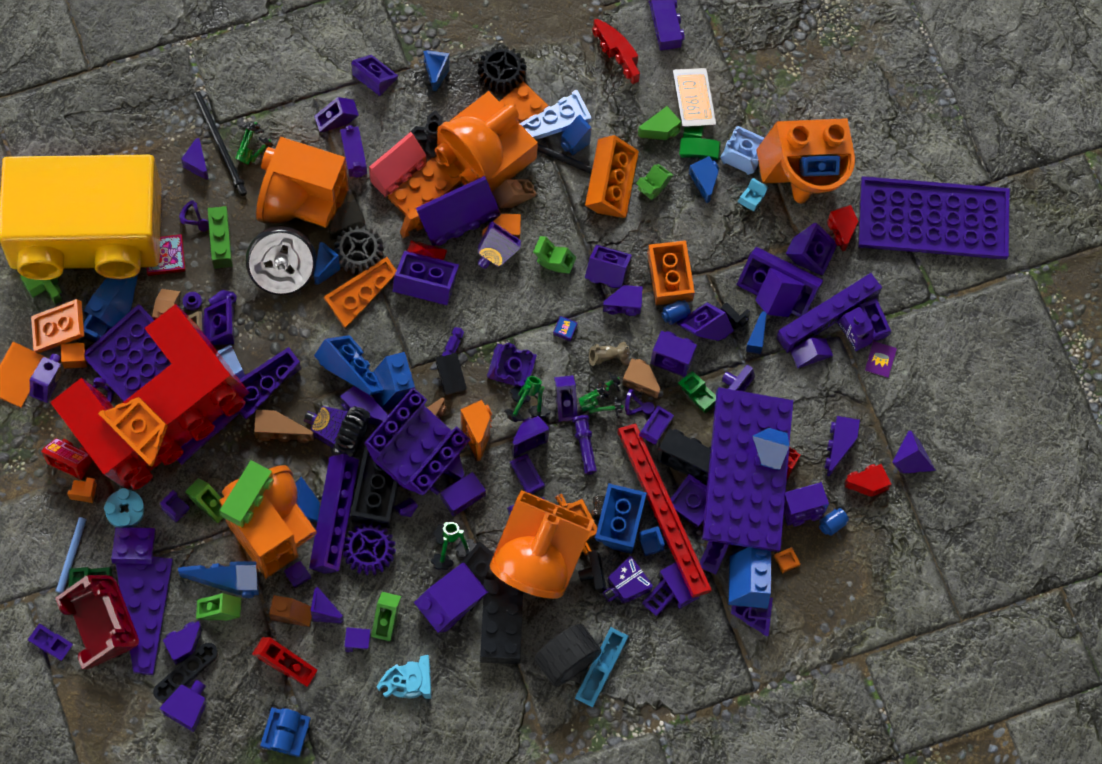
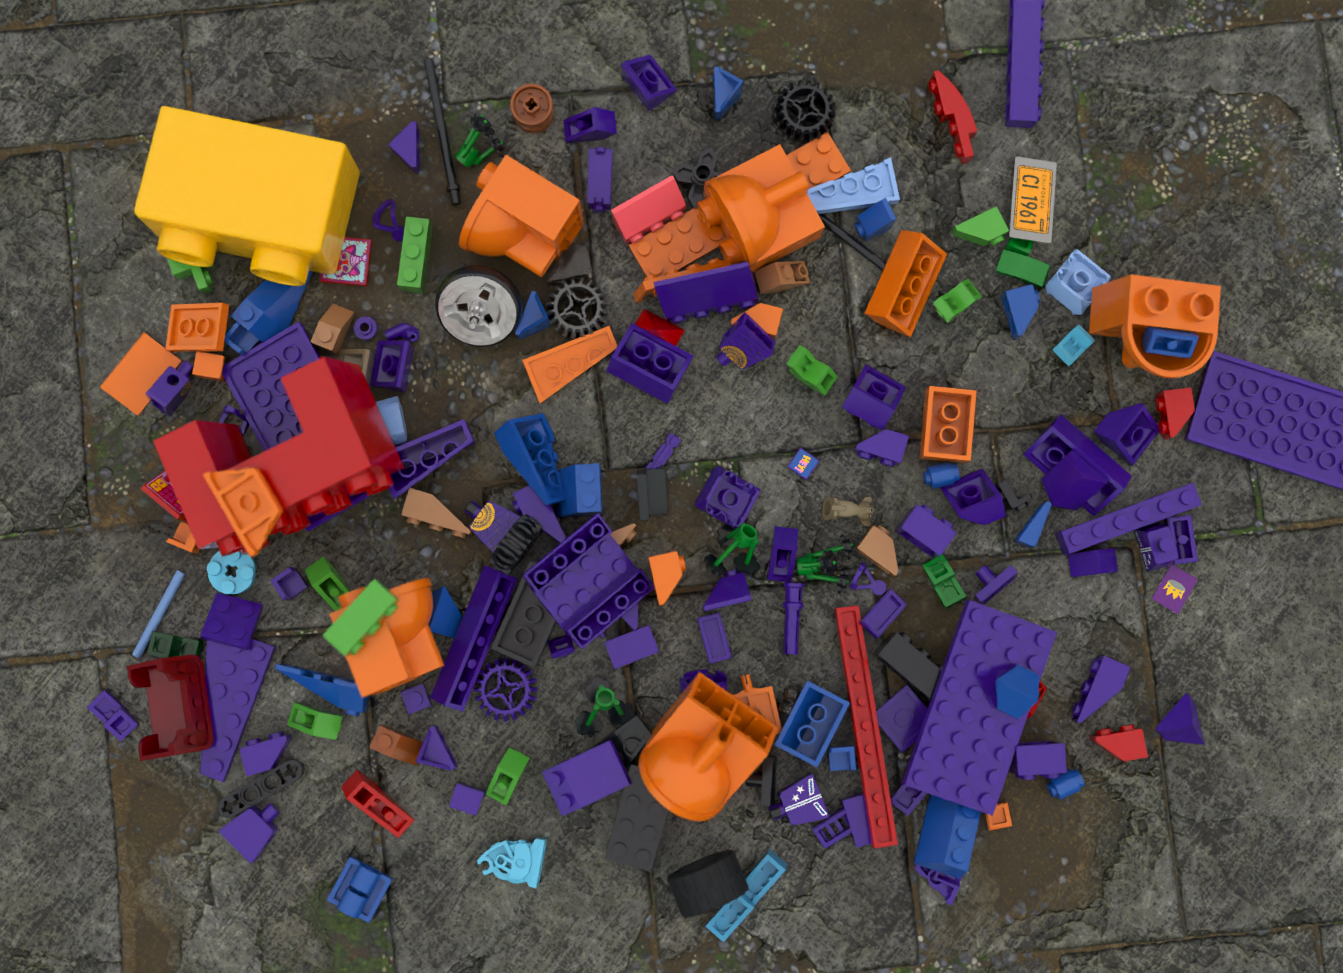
camera: 15 degrees right, 15 degrees up
(288, 111) = (540, 116): none -> dark orange wheel

